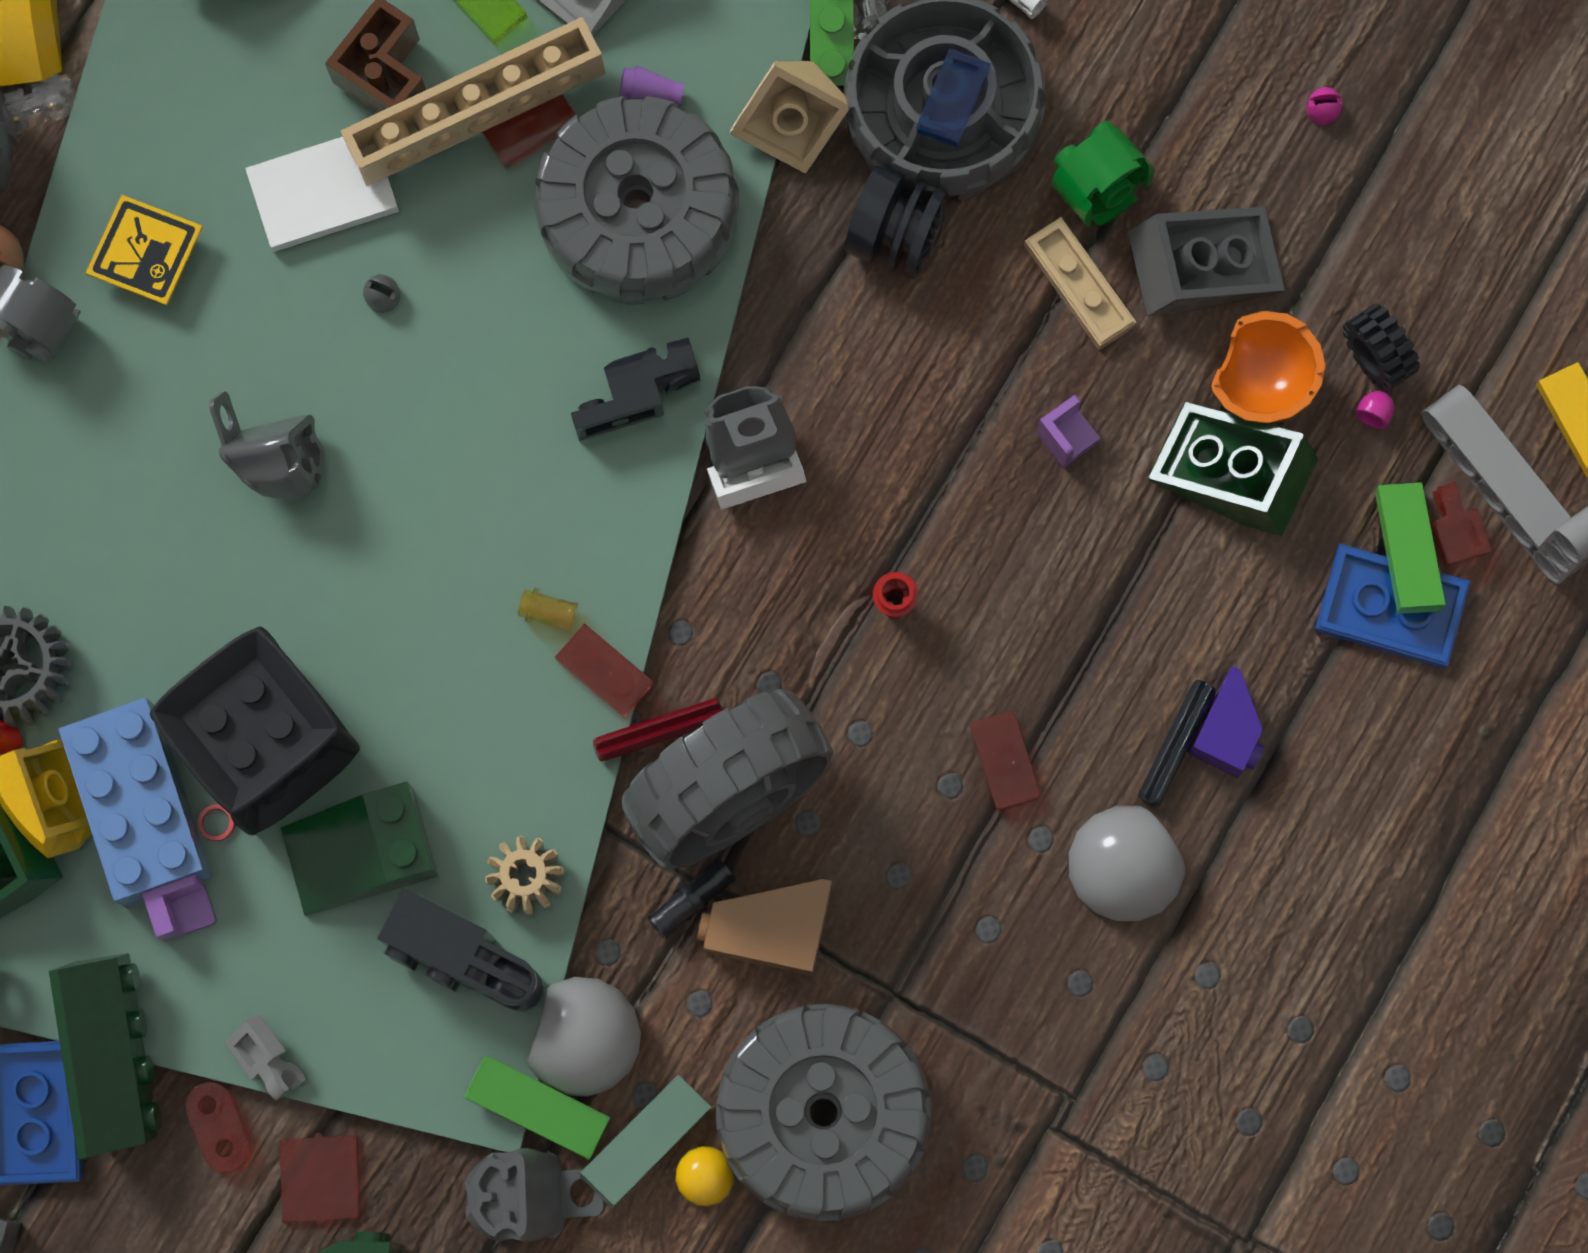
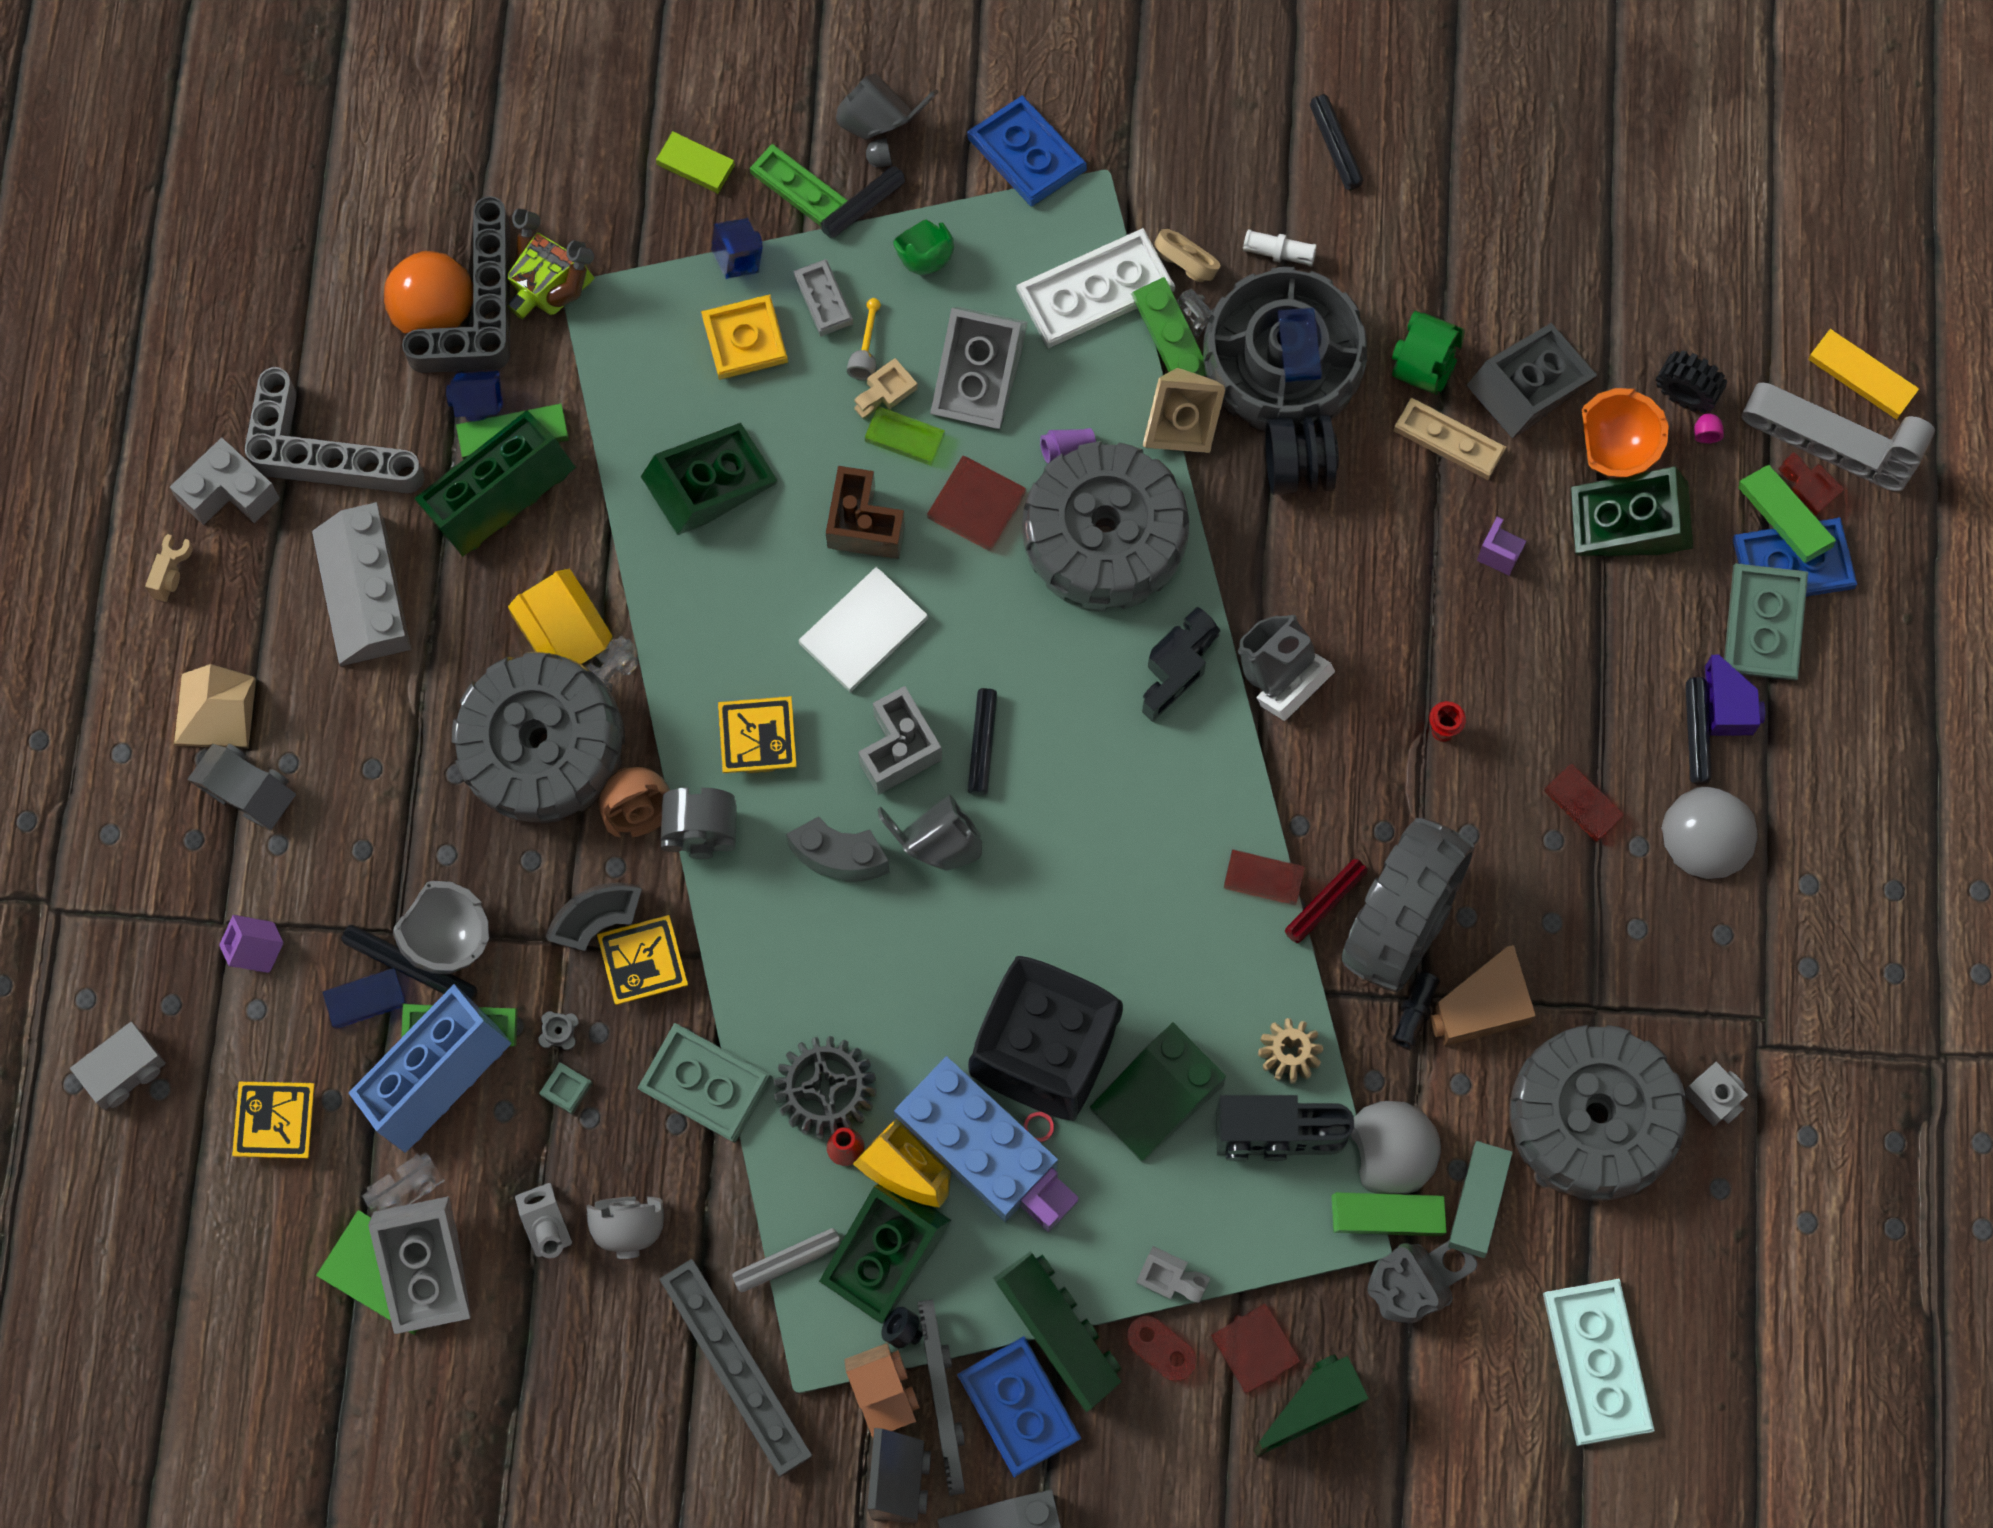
camera: 30 degrees left, 5 degrees down
(161, 425) = (837, 853): none -> dark grey brick
(293, 339) = (907, 744): none -> light grey brick
(378, 301) = (949, 690): dark grey hinge -> none
(382, 373) = (982, 741): none -> black axle
(474, 101) = (949, 510): tan brick -> none
(547, 609) = (1199, 852): clear yellow pin -> none
(704, 1176) = (1536, 1203): yellow piece -> none
(971, 1158) = (1717, 1094): none -> light grey brick
(1318, 658) = (1766, 621): none -> sand green tile
(1324, 113) = (1556, 237): dark pink hinge -> none

